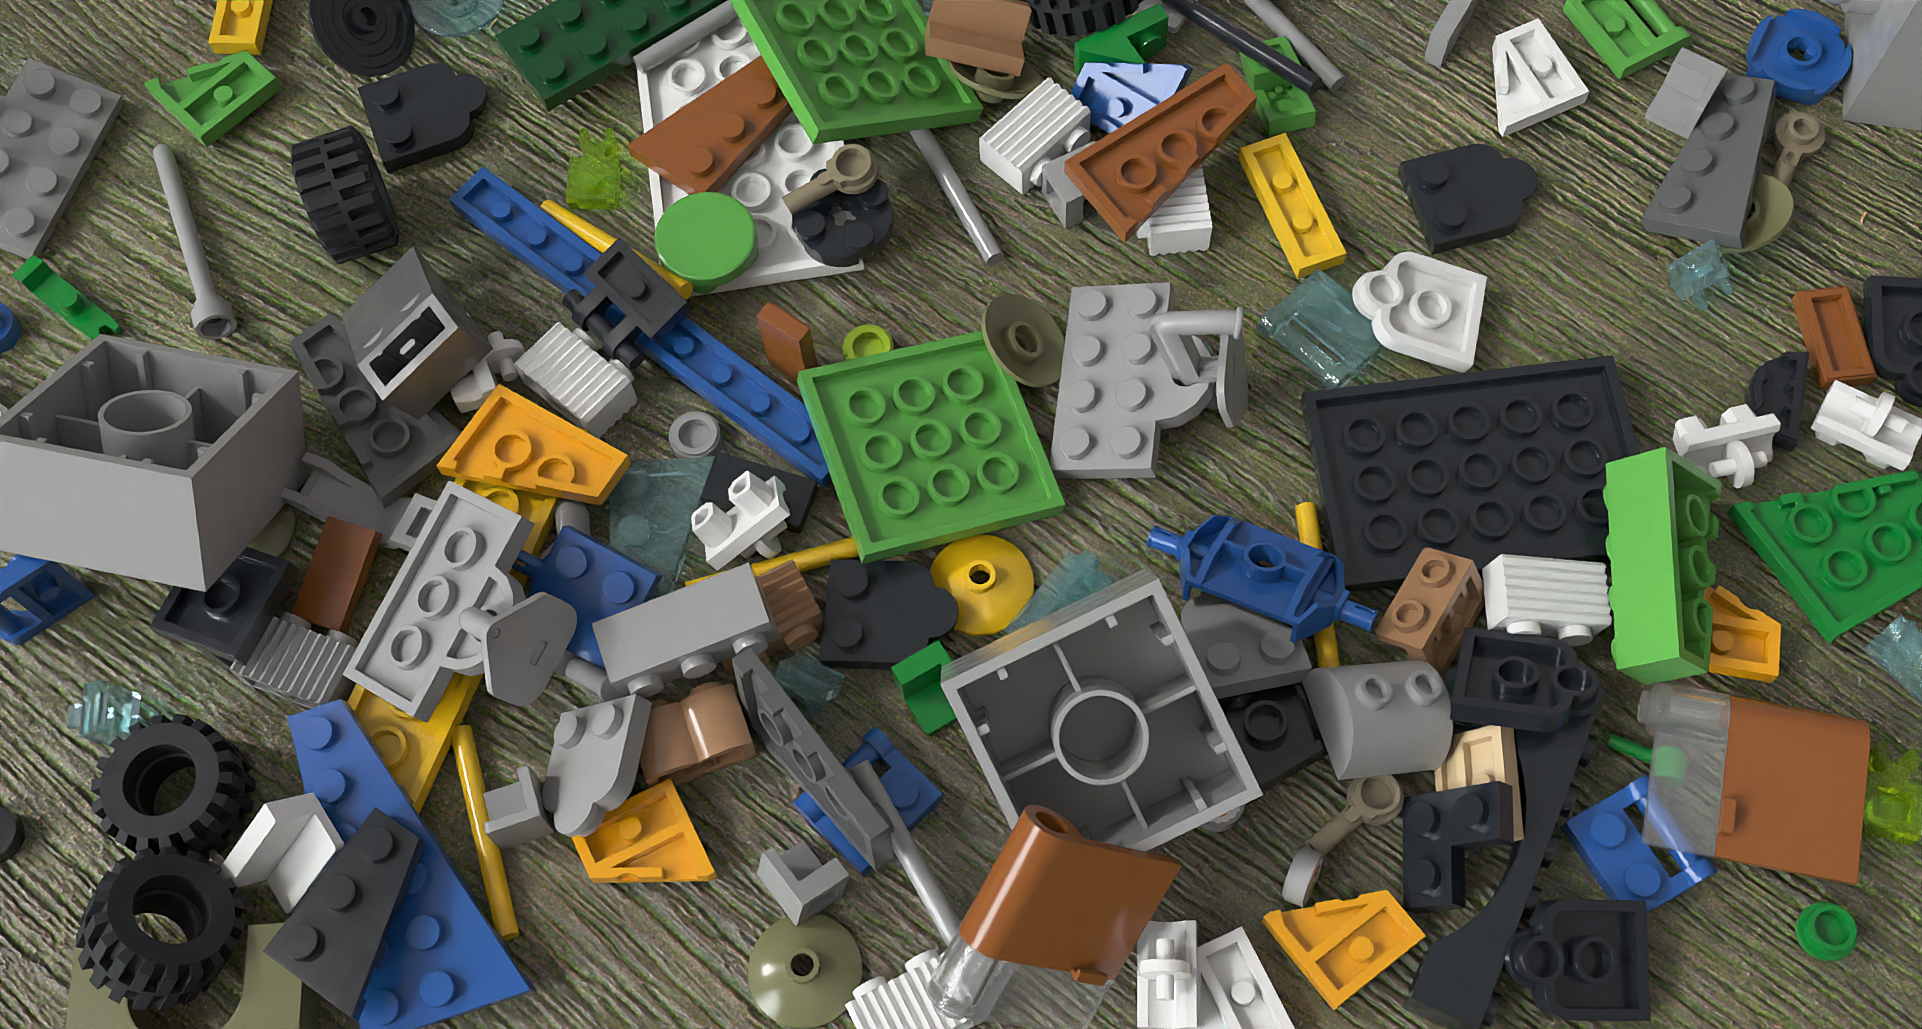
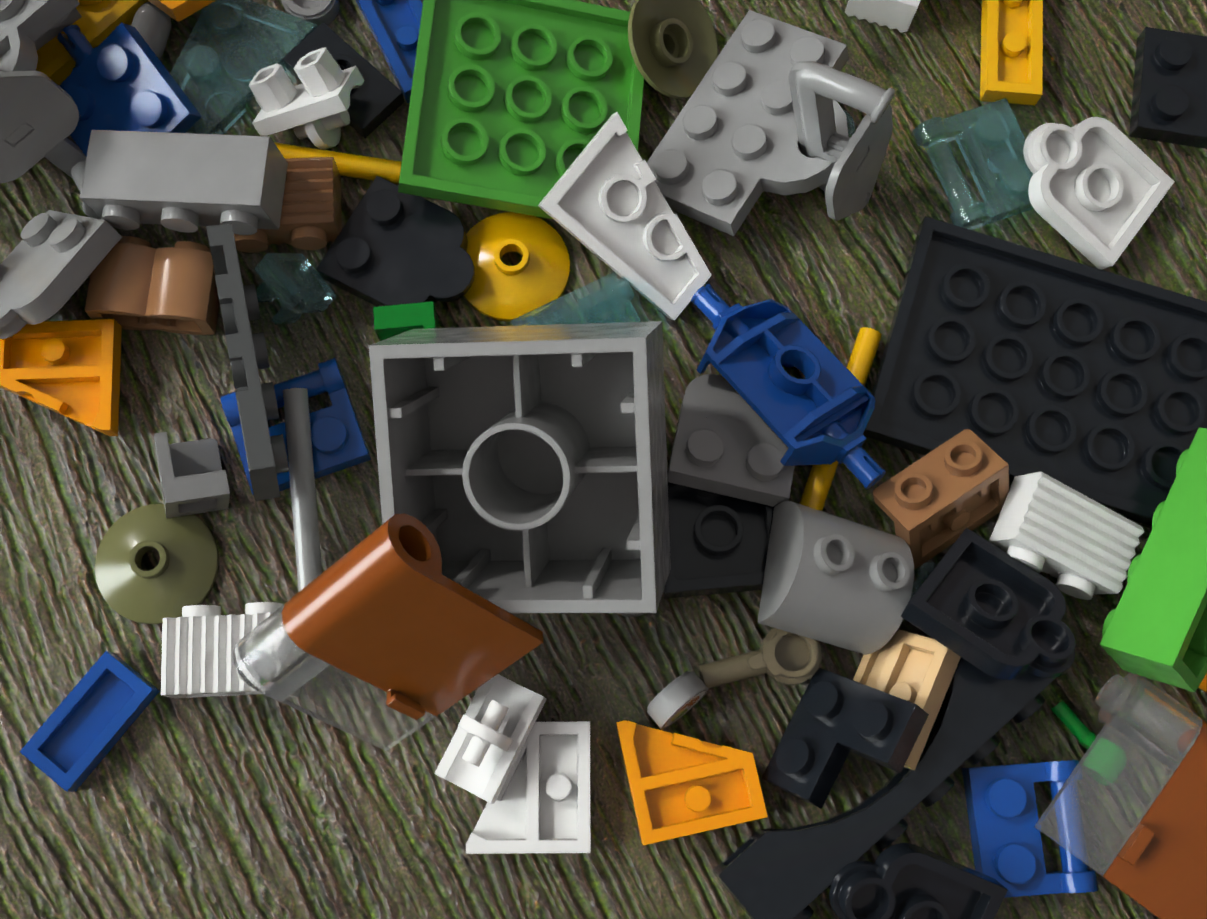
camera: 15 degrees right, 10 degrees up
(1063, 504) = (625, 221): none -> white wing

